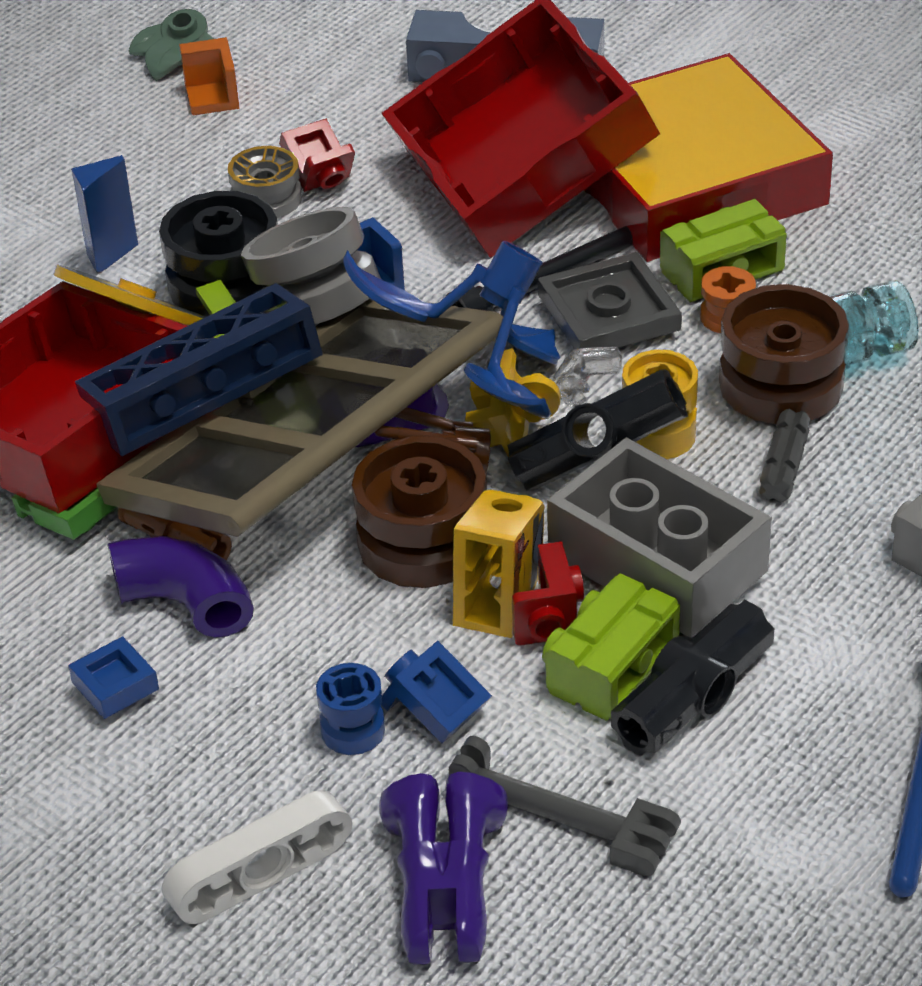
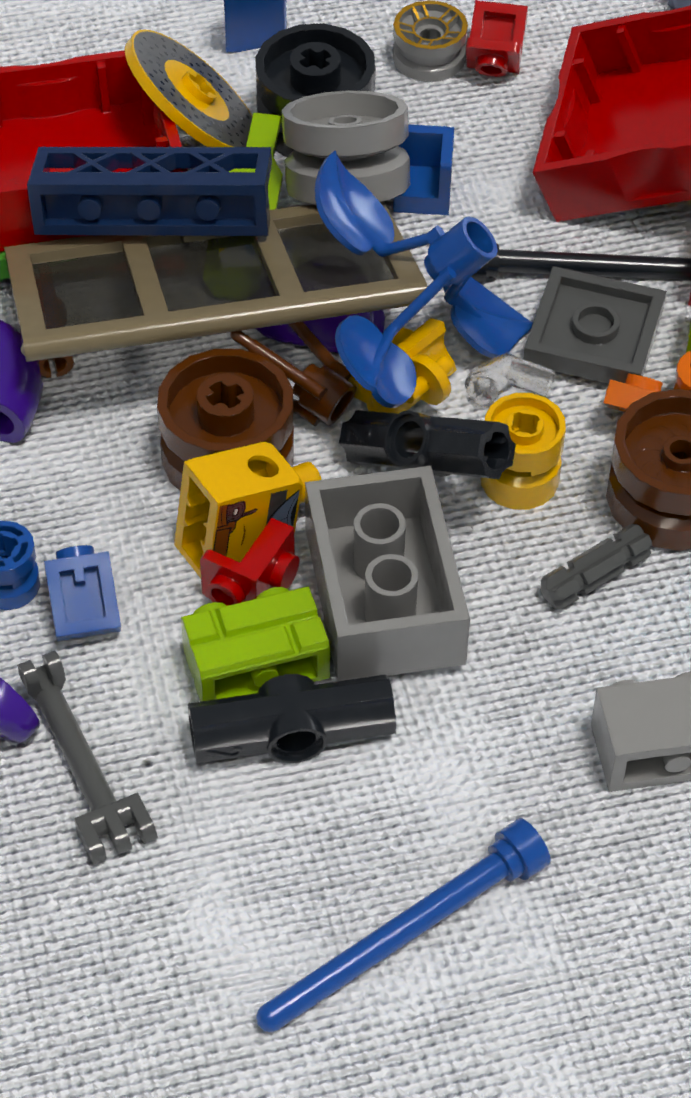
camera: 35 degrees right, 10 degrees up
(694, 329) = (621, 395): none -> orange plate

